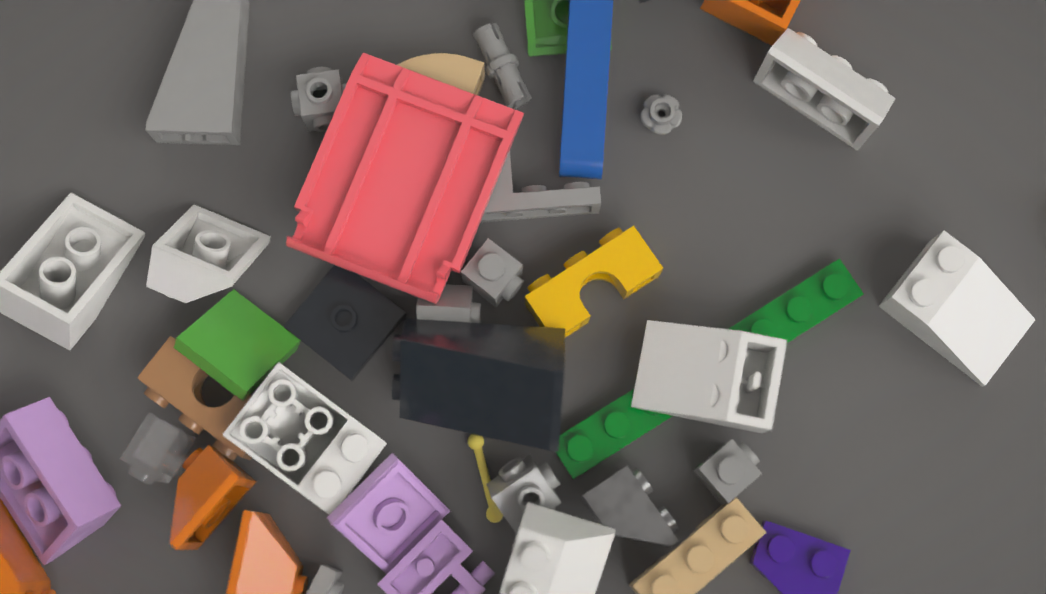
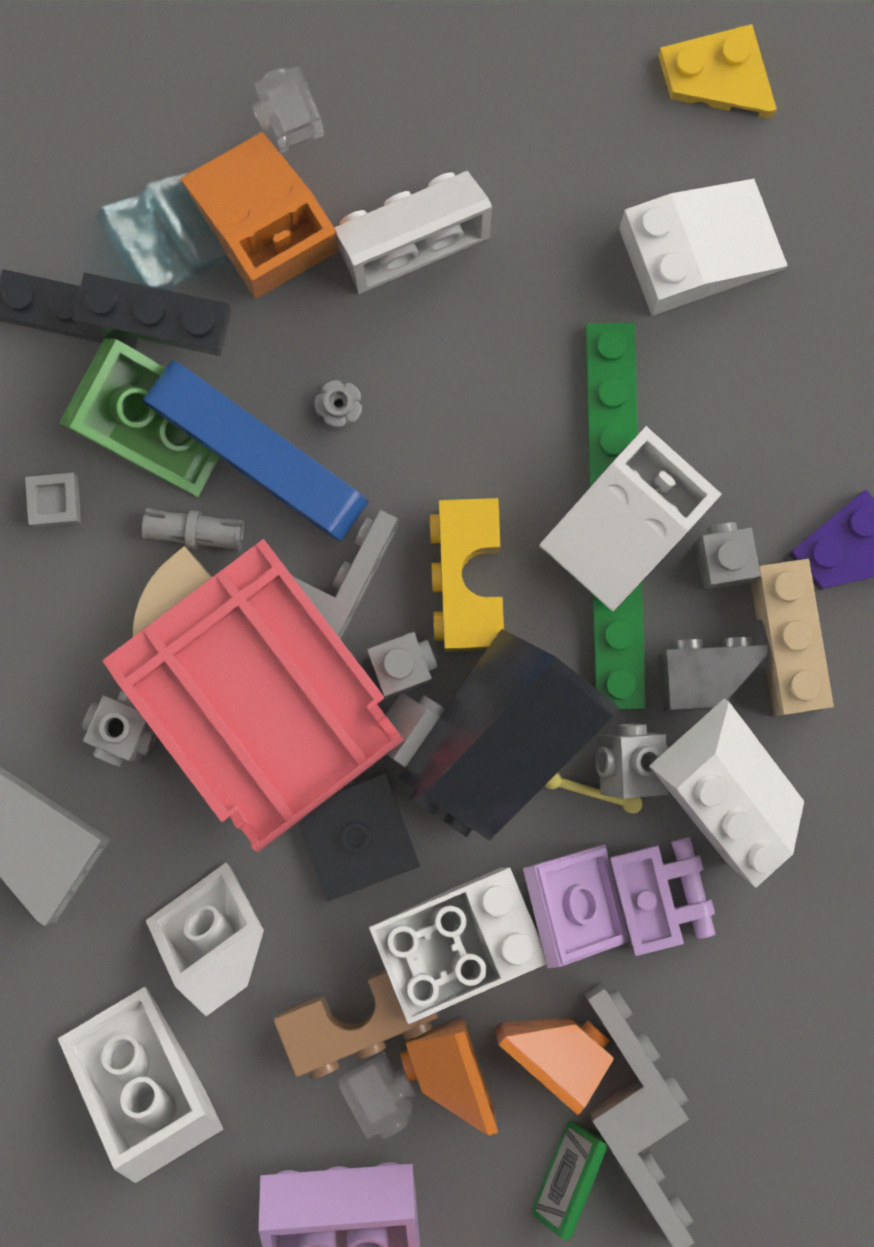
camera: 55 degrees left, 5 degrees up
(237, 344) = (320, 958): bright green tile -> none

